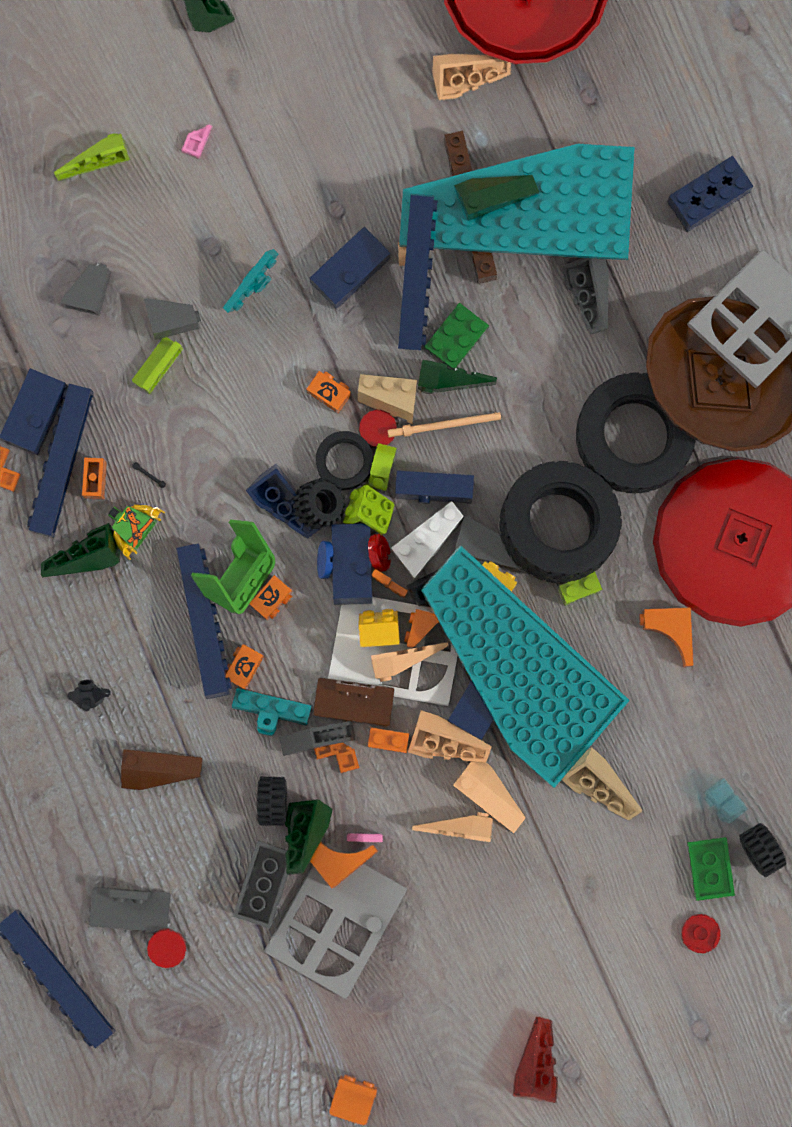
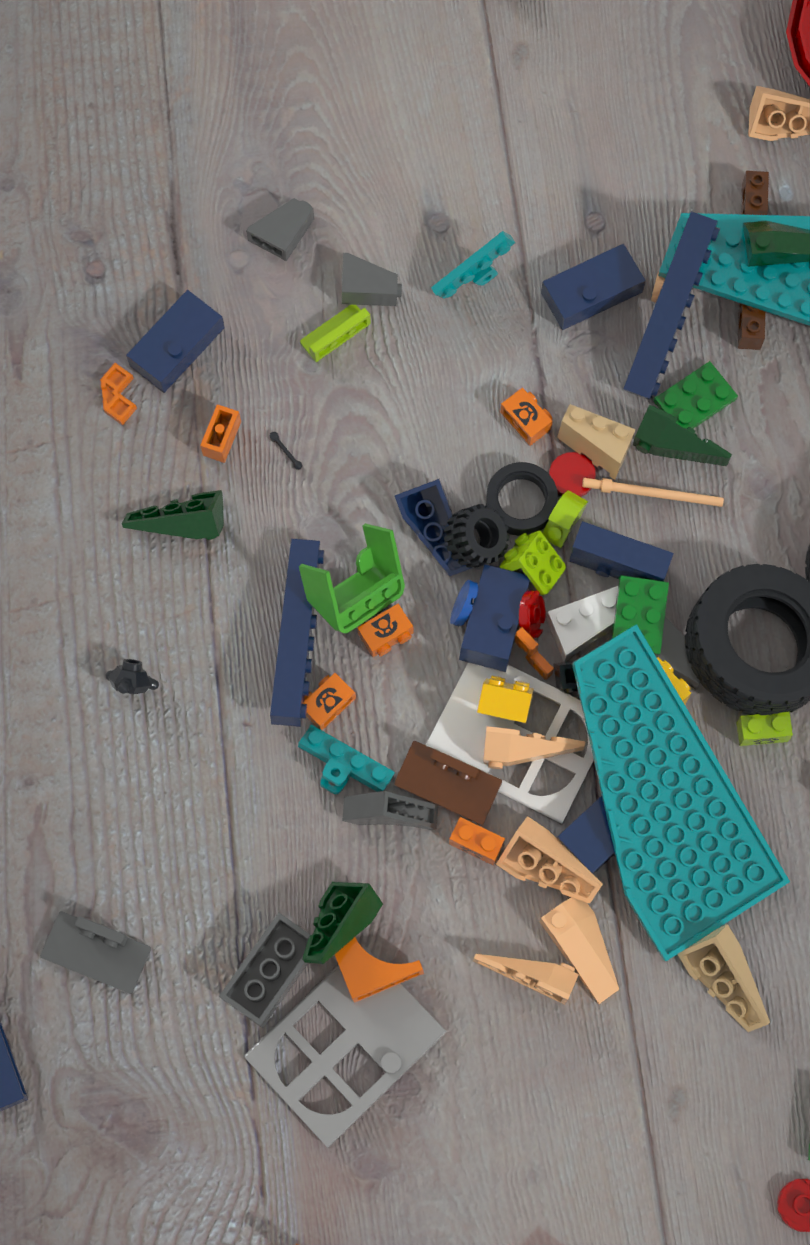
camera: 15 degrees right, 10 degrees down
(60, 461) = (188, 404): dark blue brick -> none
(102, 154) = (346, 89): lime wedge -> none
(133, 526) = (249, 500): torso -> none
(151, 769) = (175, 789): reddish brown wedge -> none
(166, 948) = (125, 1013): red tile -> none
(196, 141) = (456, 106): bright pink tile -> none
(272, 801) = (311, 869): black tyre -> none
(345, 756) = (417, 845): orange tile -> none
(365, 837) = (412, 952): bright pink tile -> none
(421, 623) = (559, 712): orange arch -> none
(461, 528) = (642, 604): none -> green plate

